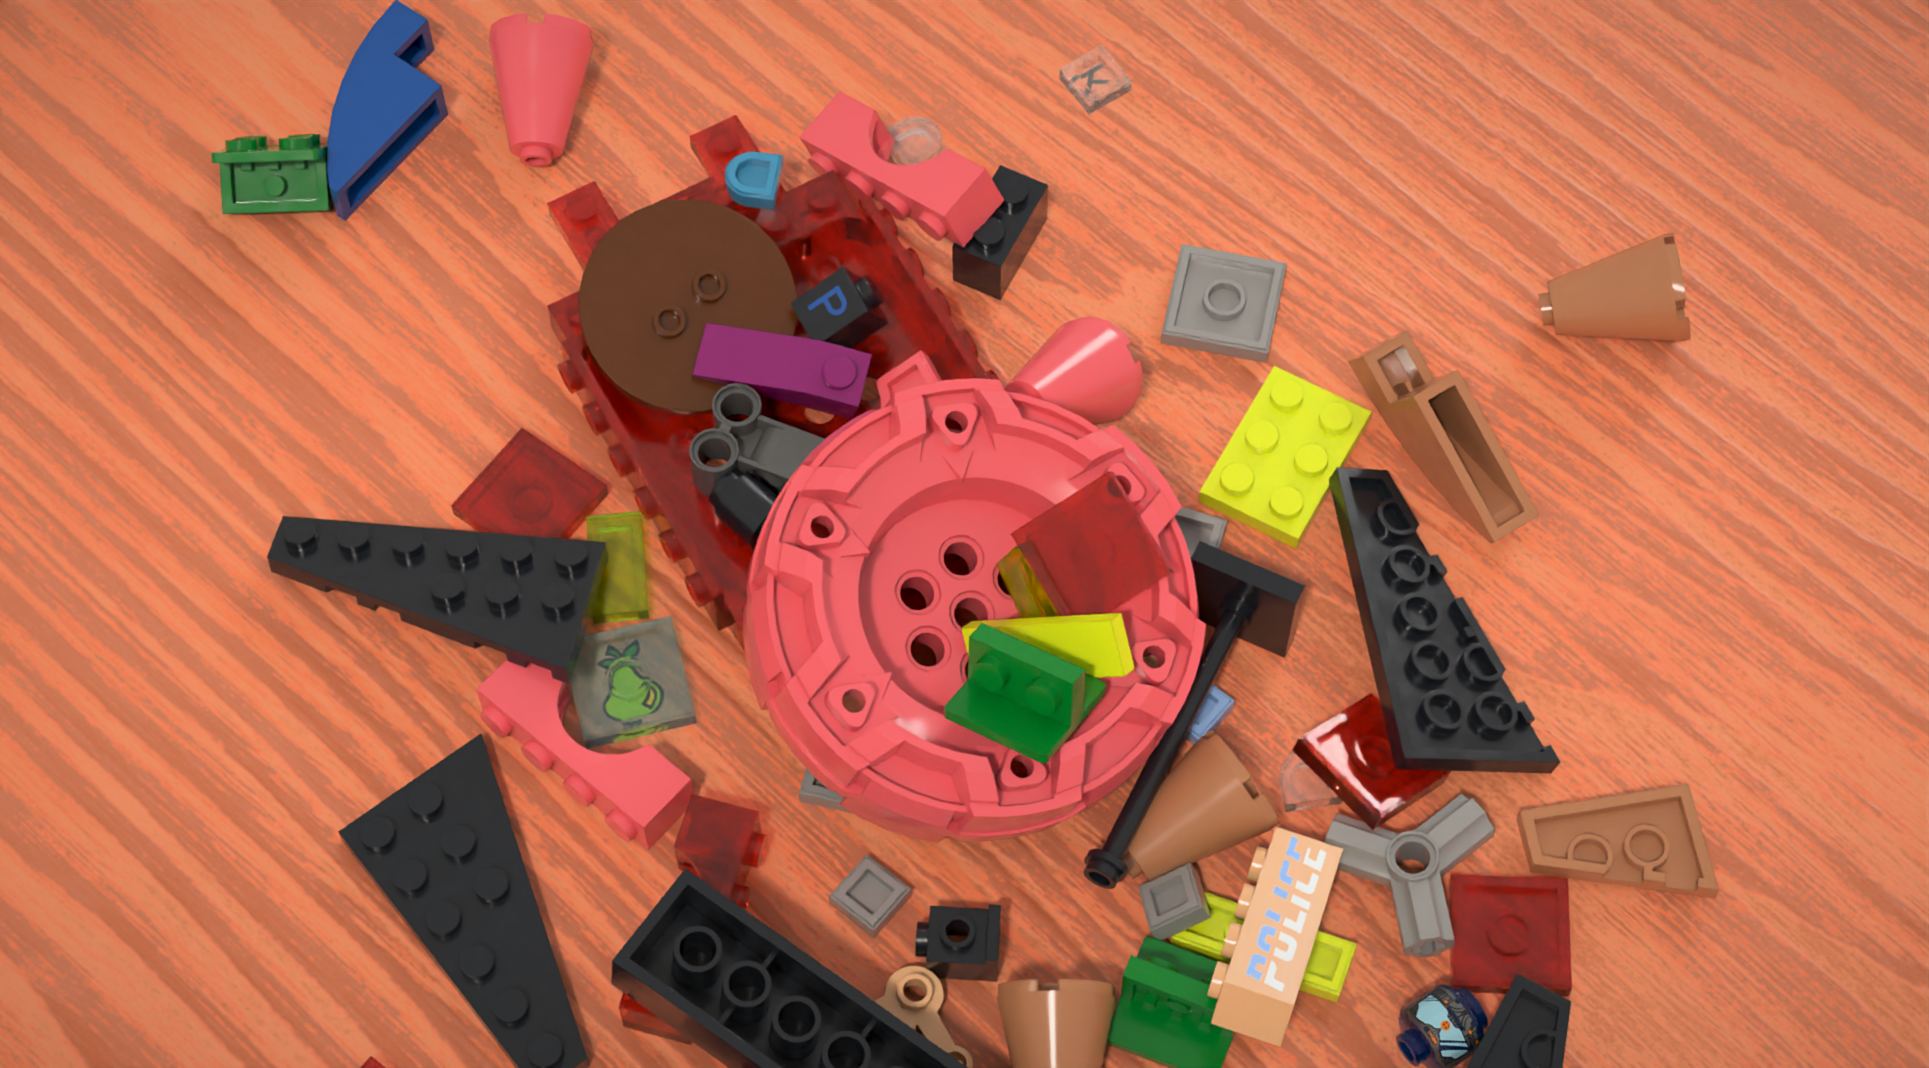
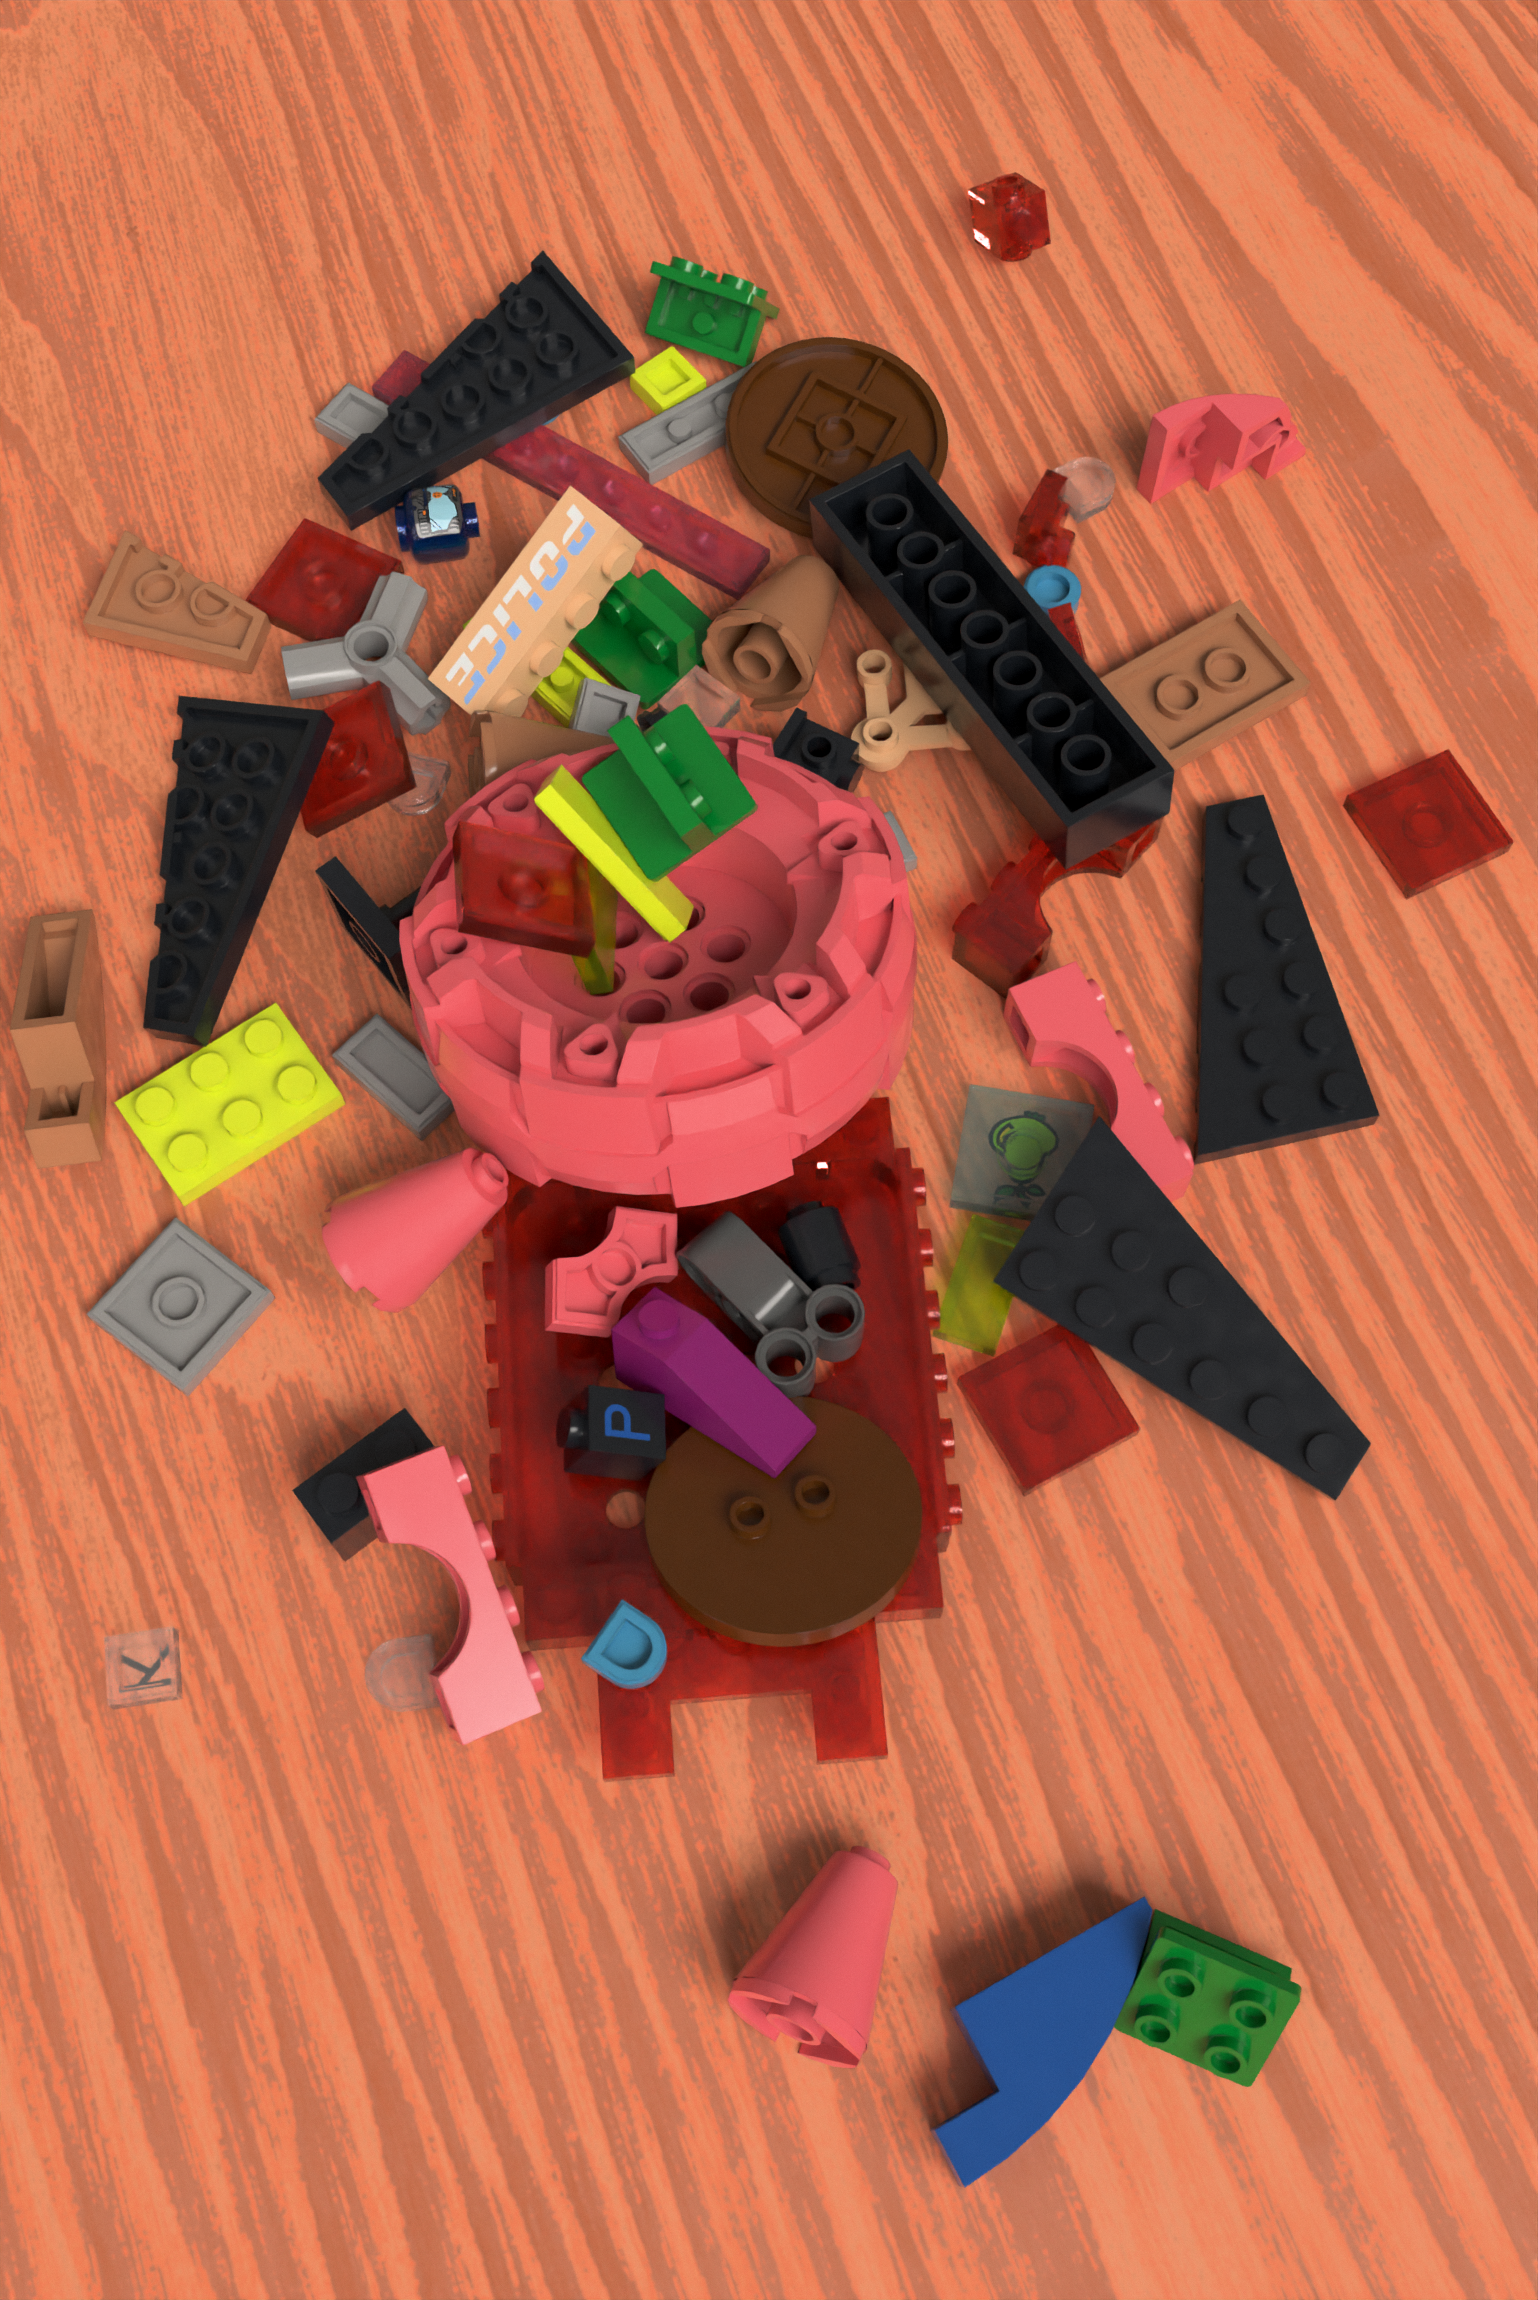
camera: 155 degrees left, 5 degrees up
(1099, 958) = (705, 695): none -> clear tile

